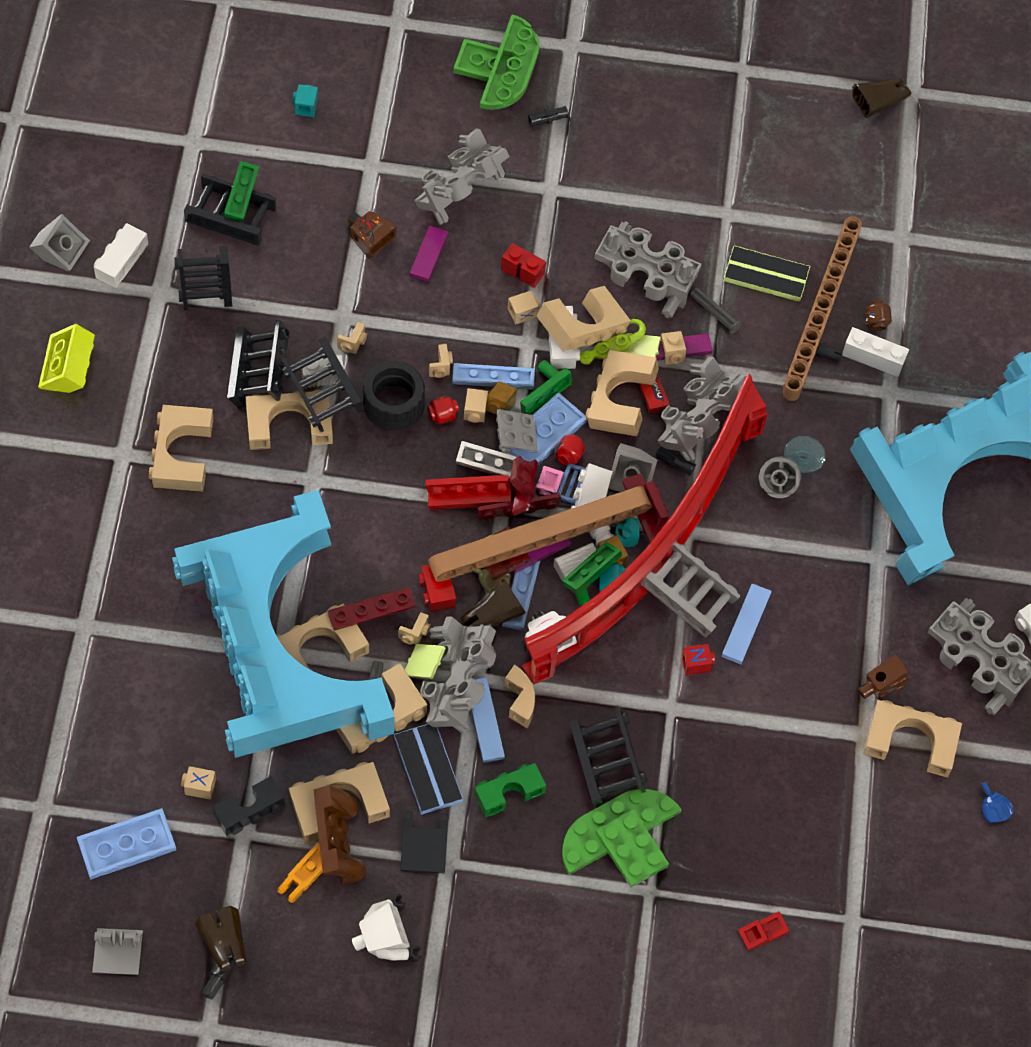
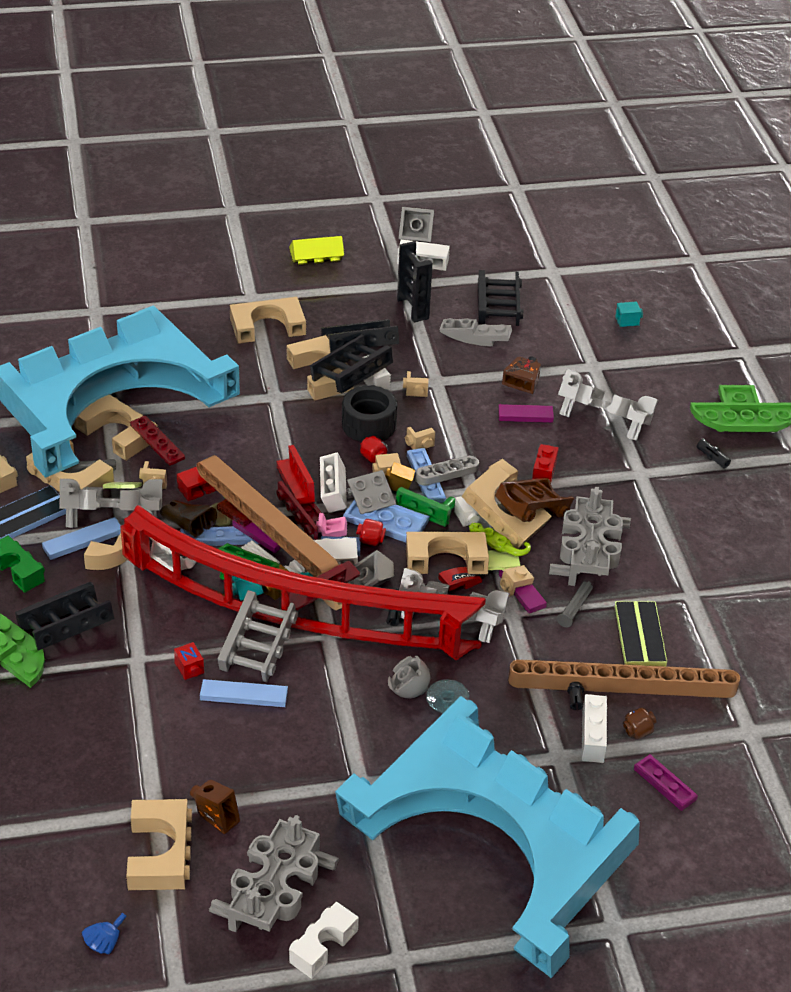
camera: 75 degrees right, 20 degrees down
(241, 191) = (514, 290): green piece -> none
(284, 252) = (470, 332): none -> light grey slope
(501, 353) = (428, 475): none -> light grey beam
(523, 479) = (316, 494): dark red bracket -> none
(585, 290) = (526, 496): none -> reddish brown piece
(941, 322) = (665, 782): none -> magenta tile

